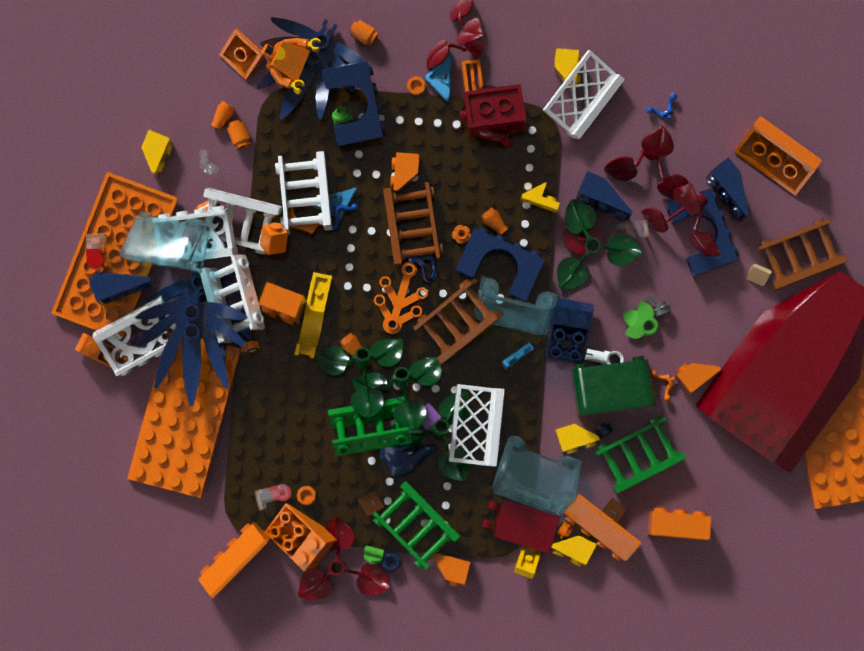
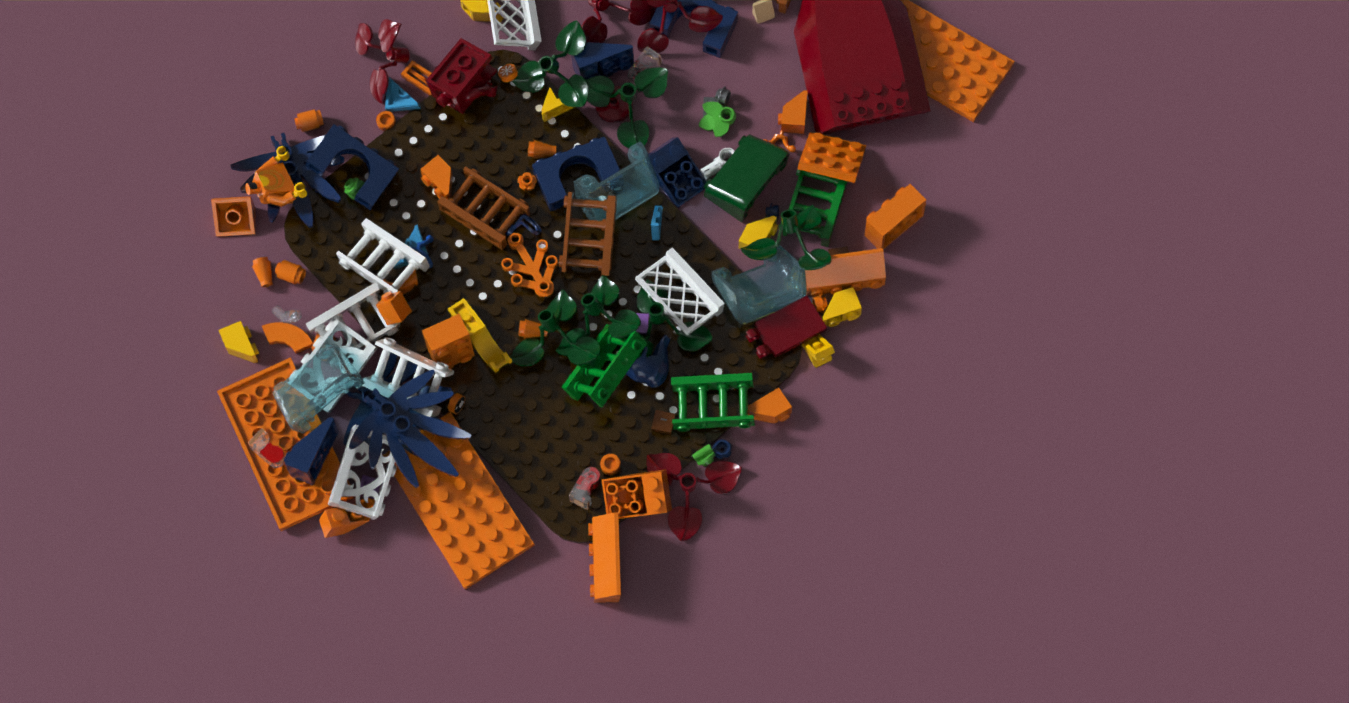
camera: 45 degrees left, 15 degrees down
(194, 178) = (287, 334): none -> orange tile
(532, 139) = (508, 73): none -> orange tile
(545, 161) = (576, 89): none -> dark green plant
(614, 463) = (792, 223): none -> dark green plant
(684, 436) = (832, 157): none -> orange plate

